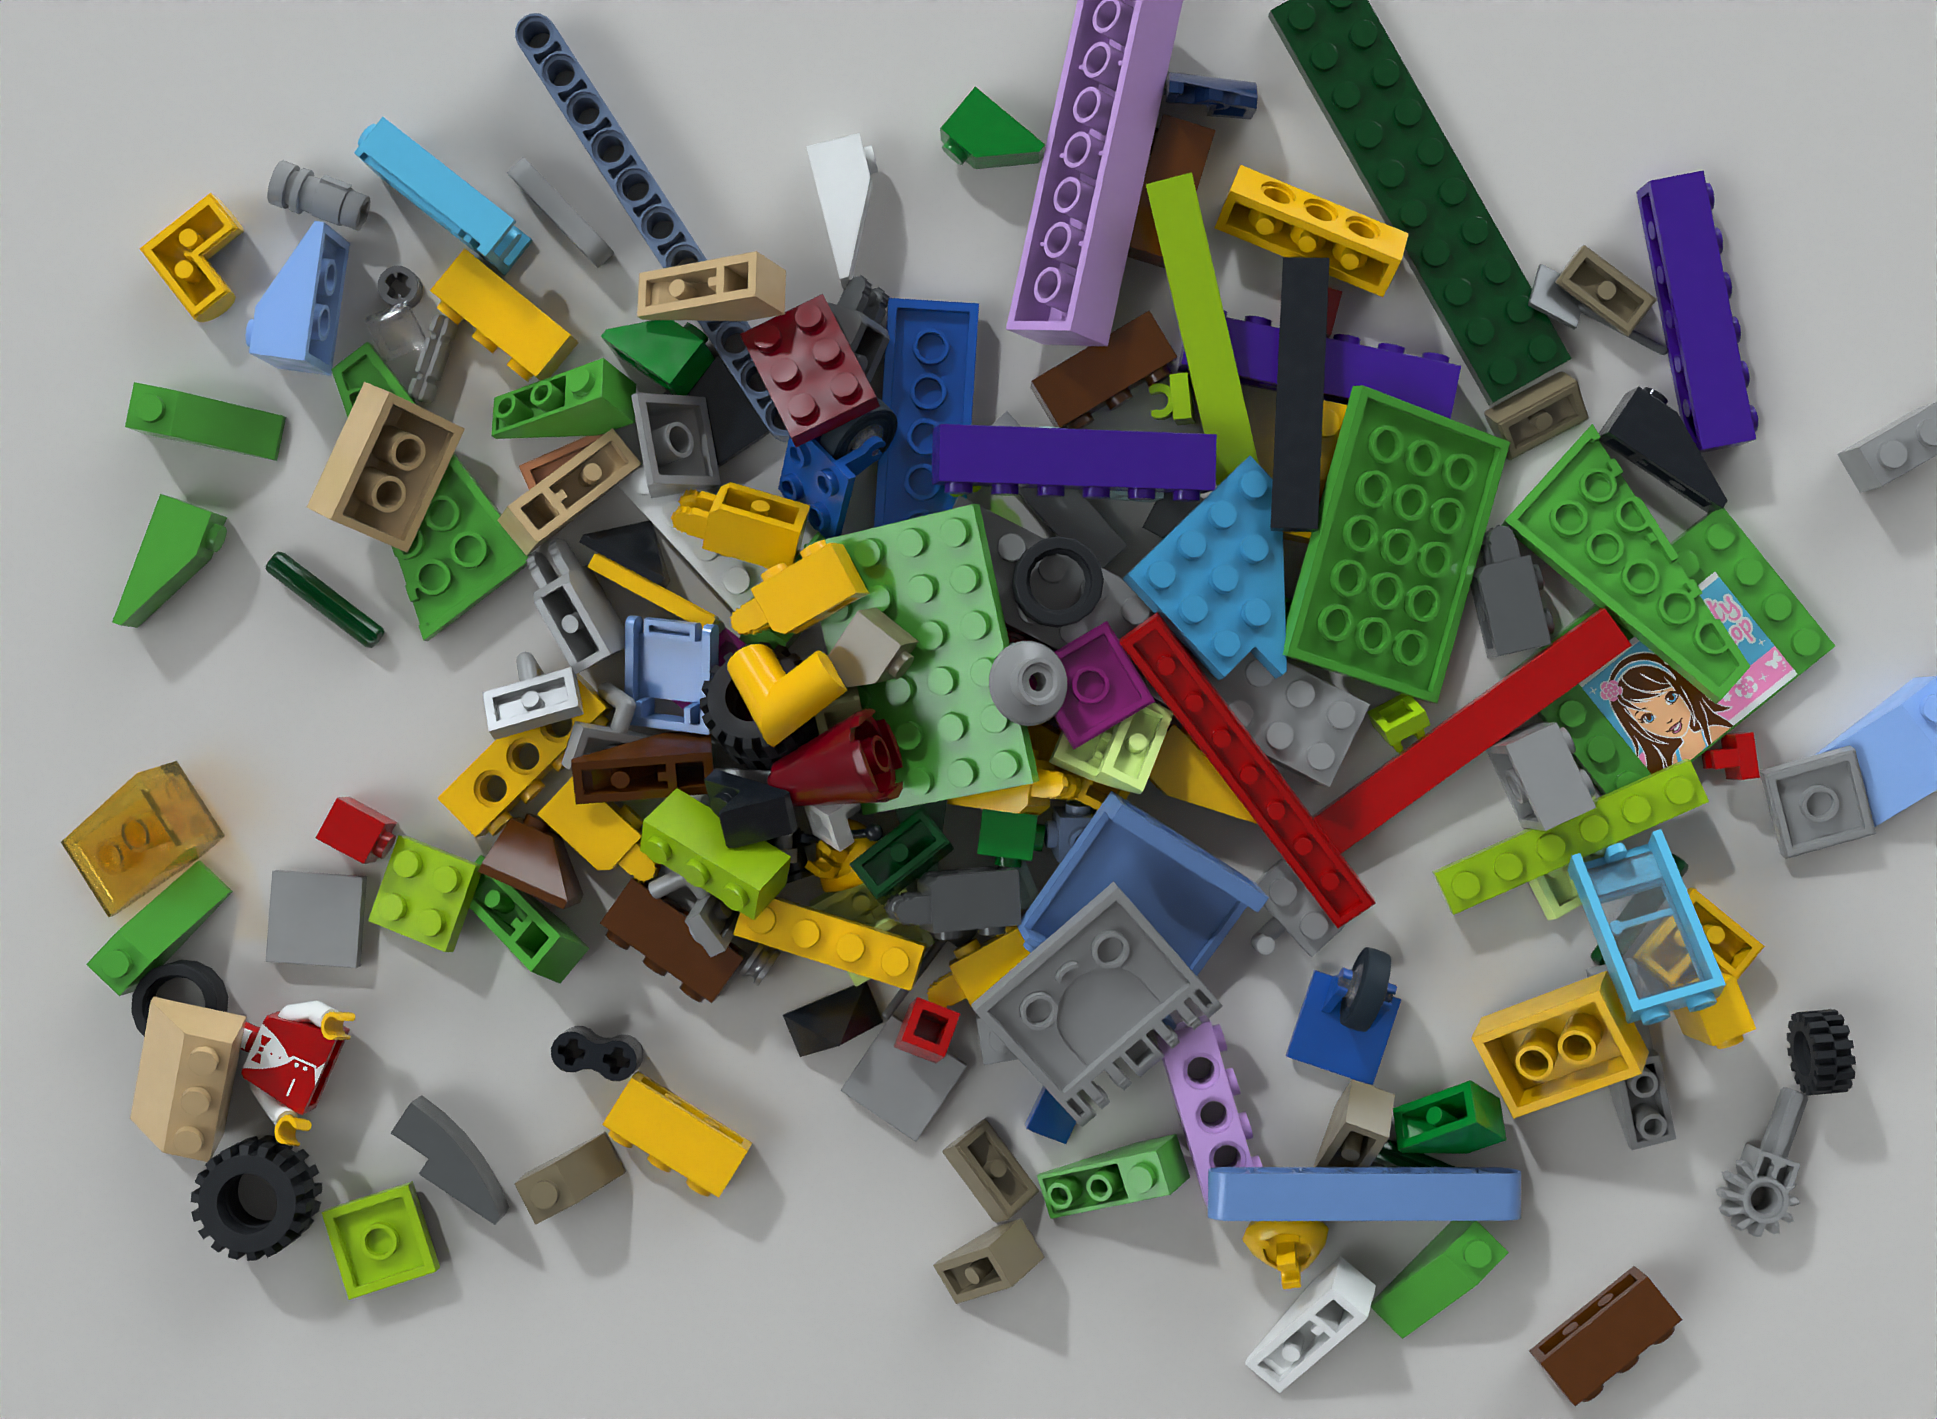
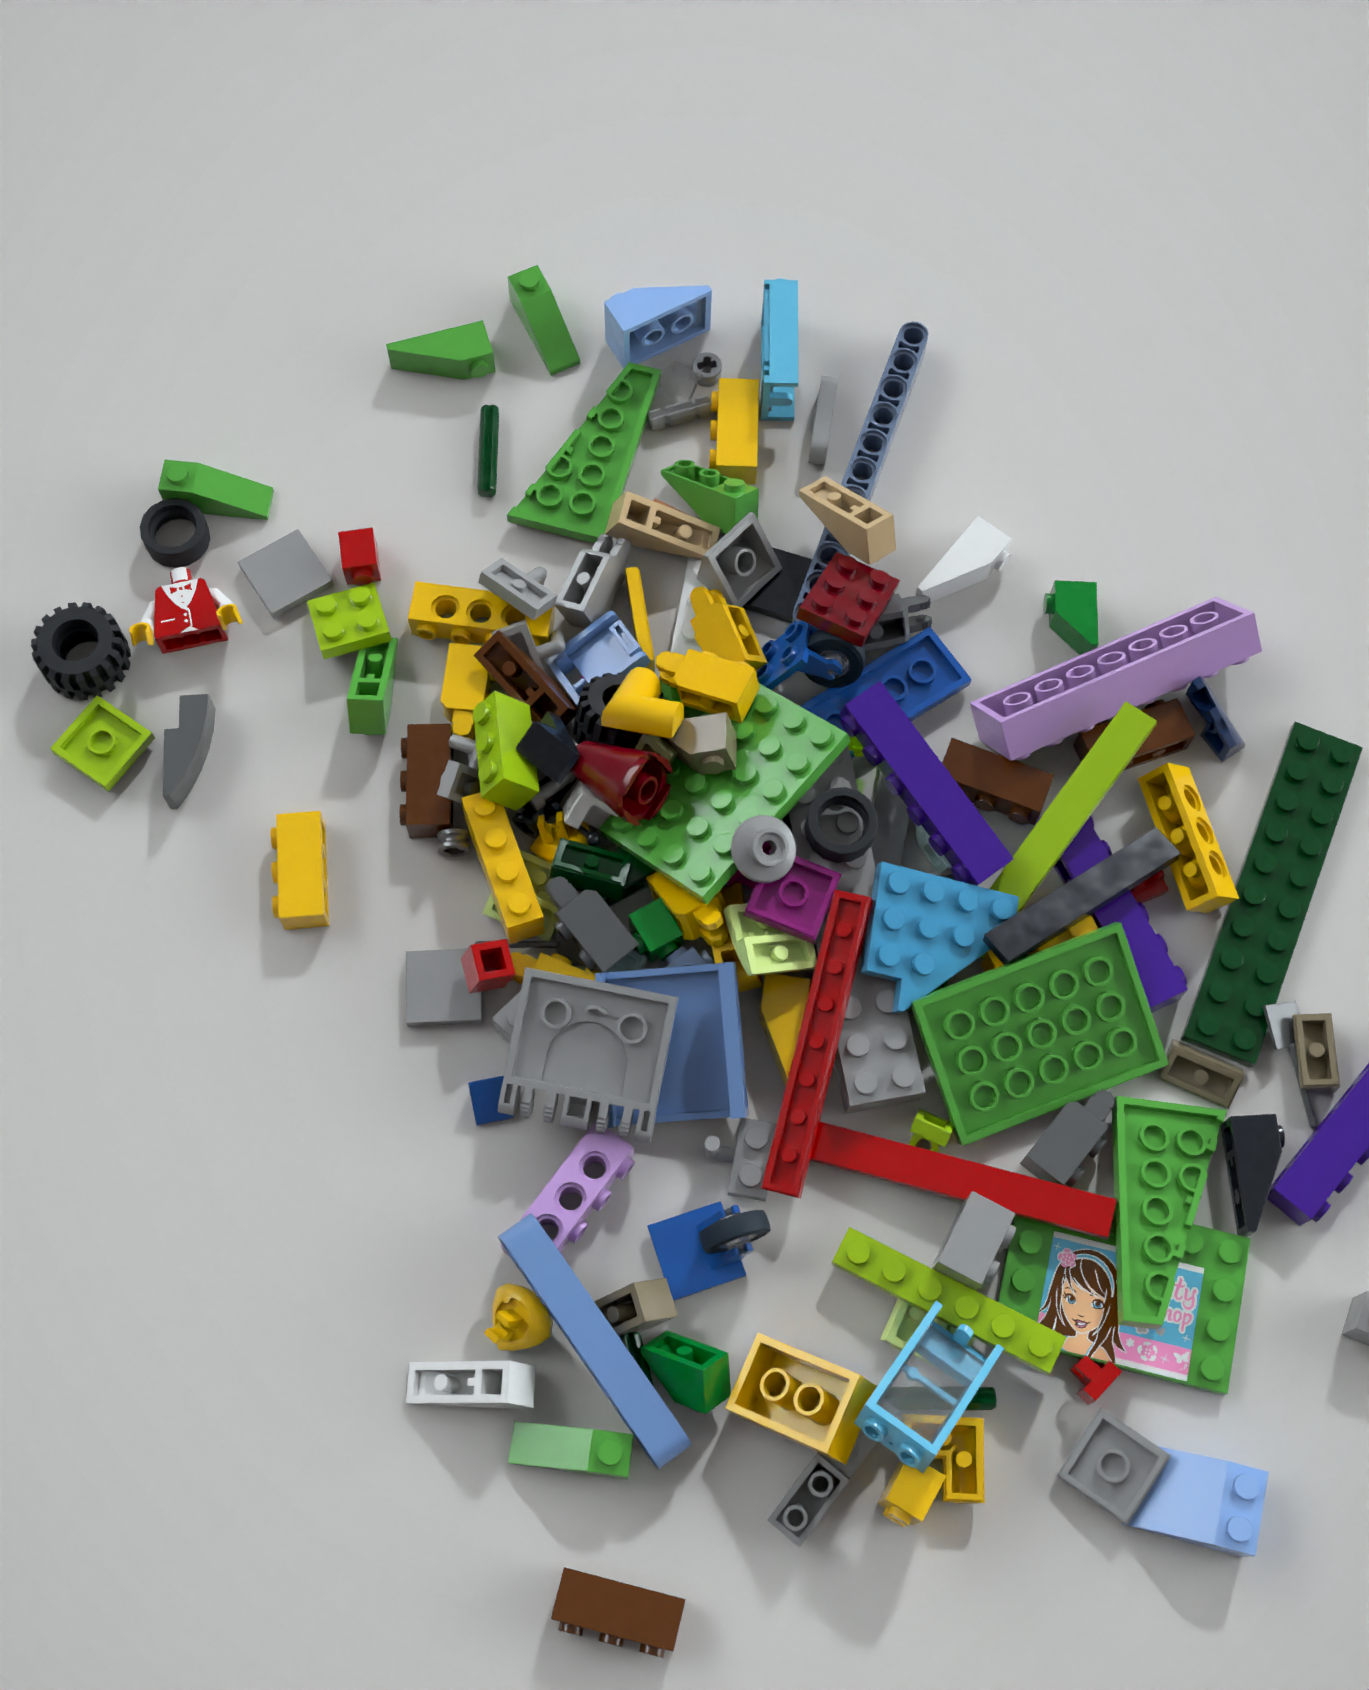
camera: 50 degrees right, 20 degrees down
(142, 836) = (267, 445): clear yellow slope -> none
(183, 252) = (633, 248): yellow brick -> none
(186, 1077) = (133, 561): tan slope -> none
(323, 197) = (726, 296): light grey axle -> none
(385, 467) = (595, 422): tan slope -> none
(533, 861) = (418, 662): reddish brown slope -> none
(569, 1178) = (224, 824): dark tan slope -> none
(597, 1053) = (320, 785): black axle -> none
(632, 547) = (658, 591): black slope -> none
(663, 352) = (790, 524): green slope -> none
(833, 1019) = (450, 916): black slope -> none
(989, 1262) = (359, 1128): dark tan slope -> none
(990, 1171) = (421, 1089): dark tan slope -> none
(1115, 1177) = (478, 1170): bright green slope -> none
(1179, 399) = (1016, 835): lime tile -> none
(1766, 1168) = (831, 1638): light grey gear -> none
(1821, 1052) = (944, 1604): black tyre -> none

